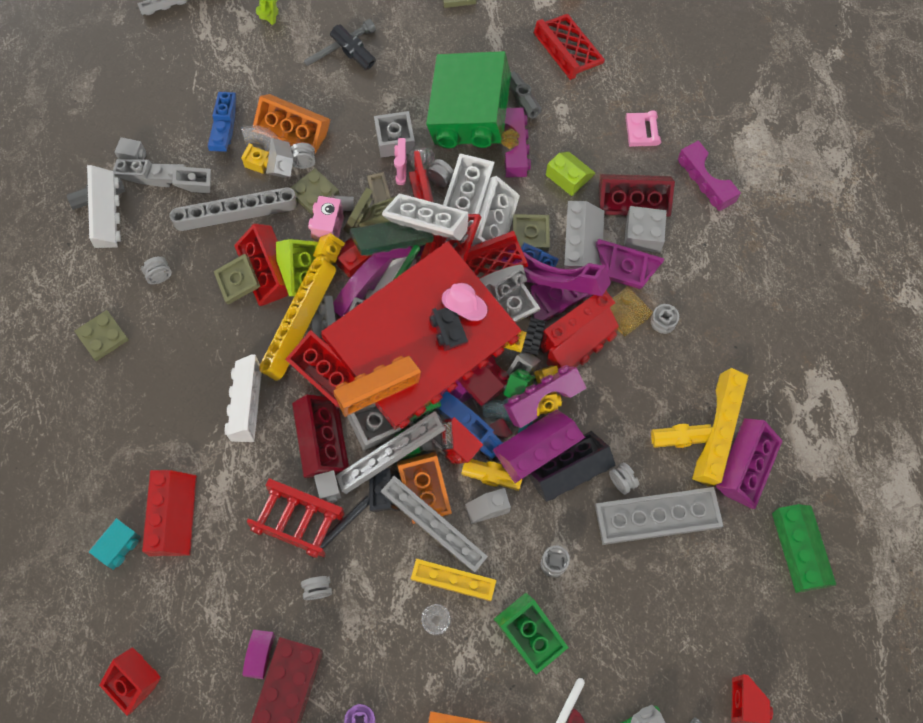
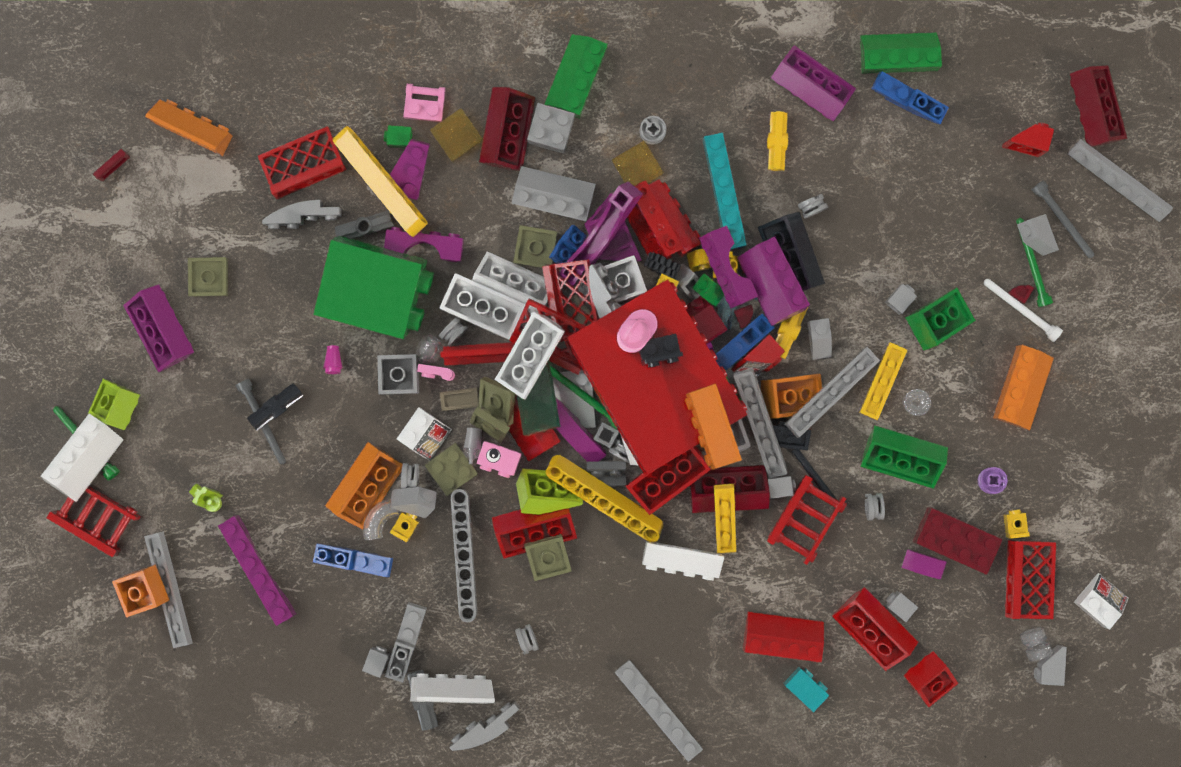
camera: 85 degrees left, 20 degrees up
(68, 247) = (479, 733): none -> light grey slope
(89, 402) = (658, 710): none -> light grey plate
(101, 335) = (588, 698): olive plate -> none
(182, 66) = (254, 568): none -> magenta arch
(183, 611) = (875, 629): none -> red slope
(192, 179) = (426, 595): light grey slope -> none
(210, 634) = (900, 605): none -> light grey brick
(288, 431) = (725, 518): none -> yellow plate
(328, 248) = (533, 460): yellow brick -> none
(344, 162) = (424, 434): none -> slope
(374, 614) = (904, 457): none -> green slope
(400, 87) = (332, 360): none -> dark pink cone
(510, 138) = (427, 251): clear yellow wheel -> none
(525, 47) = (294, 214): none -> light grey slope
(545, 586) = (901, 298): none -> light grey brick
(555, 561) = (881, 285): light grey wheel -> none
(564, 98) = (380, 181): none -> yellow beam
(568, 172) = (468, 192): lime slope -> none
(579, 120) = (410, 168): none -> magenta wing
(608, 111) = (398, 136): none -> green brick
(620, 155) = (456, 135): none -> clear yellow plate
(620, 390) = (724, 188): none -> teal brick
(626, 264) = (589, 155): magenta wing -> none
(658, 515) = (851, 181): light grey plate -> none
(700, 248) = (576, 74): none -> green slope
(713, 459) = (747, 86): yellow arch -> none
(720, 192) = (518, 39): magenta arch -> none
(759, 563) = (909, 99): none -> blue slope

